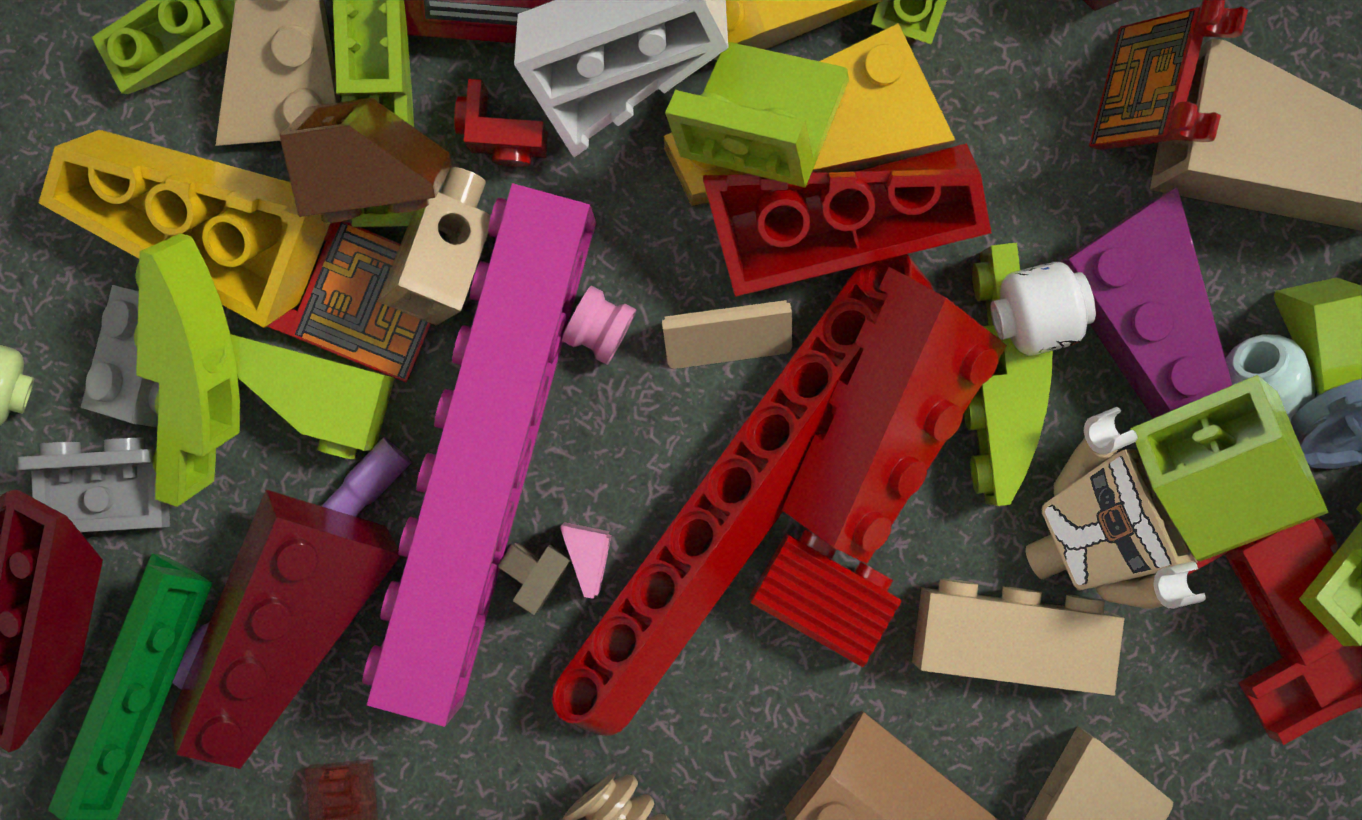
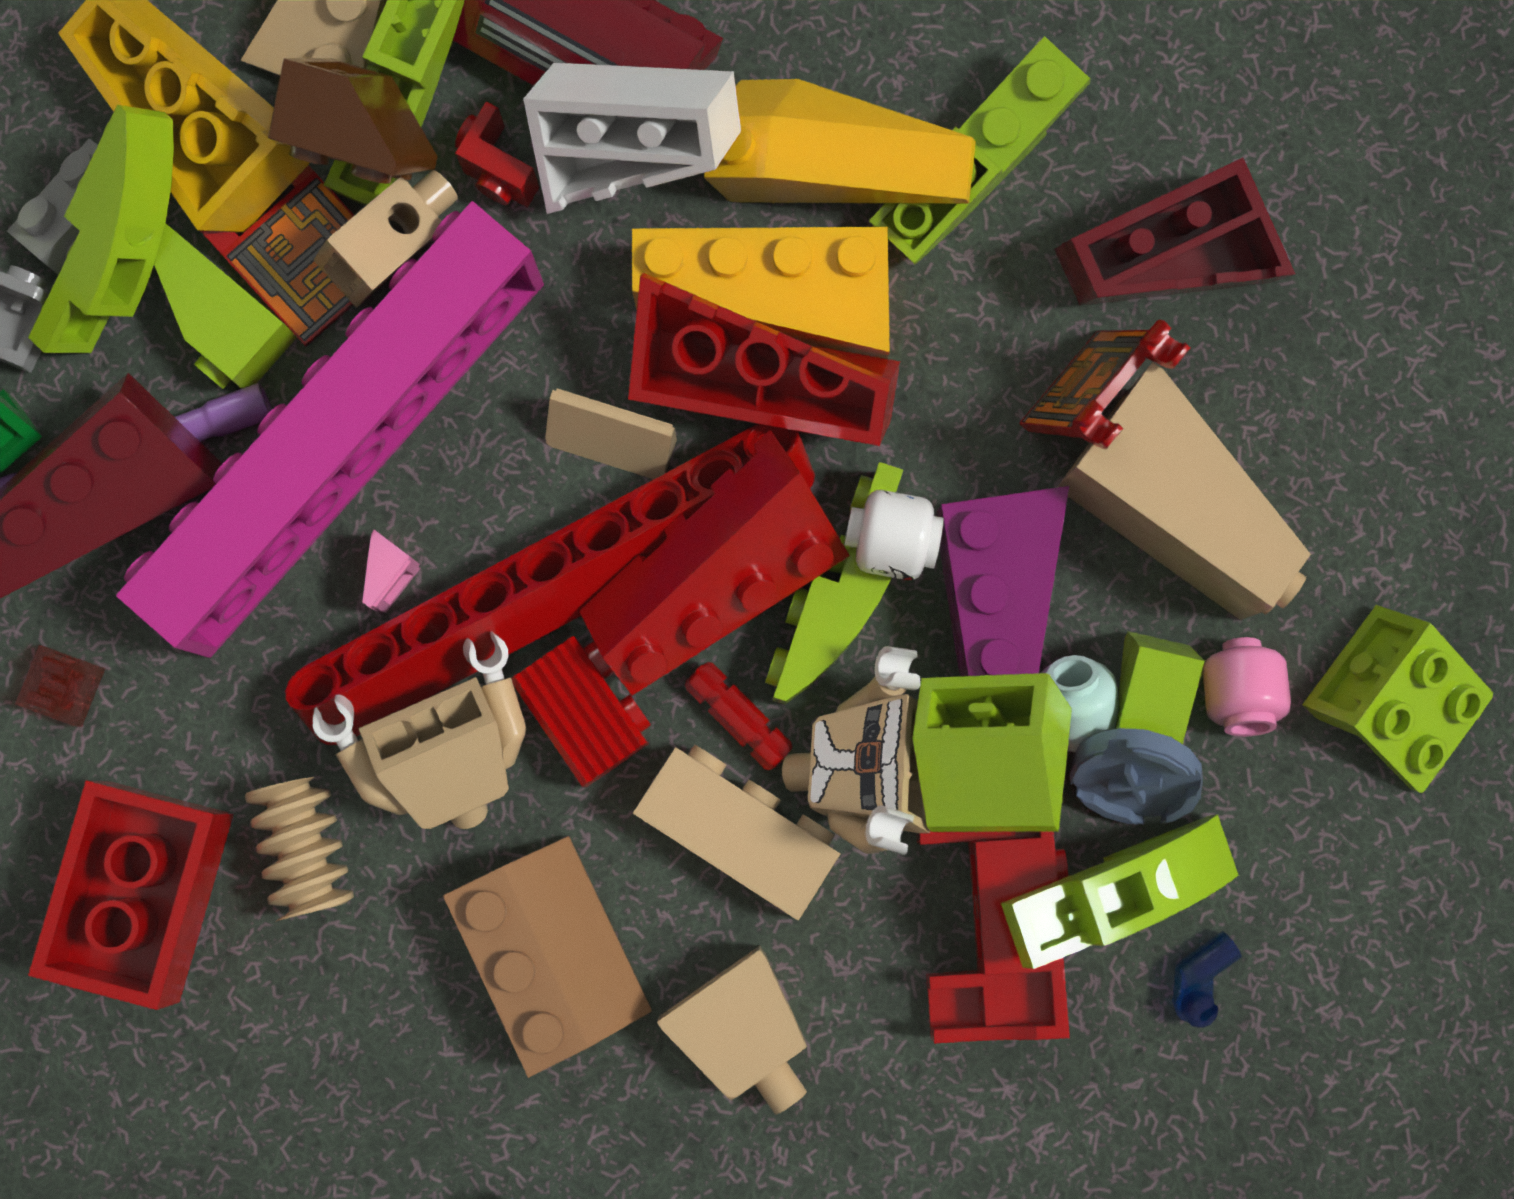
camera: 30 degrees right, 5 degrees down
(536, 573) = (333, 567): dark tan tile -> none
(598, 325) = (498, 372): bright pink wheel -> none
(725, 701) = (439, 754): none -> tan torso
(759, 113) = (717, 243): lime bracket -> none
(965, 533) = (738, 715): none -> red axle

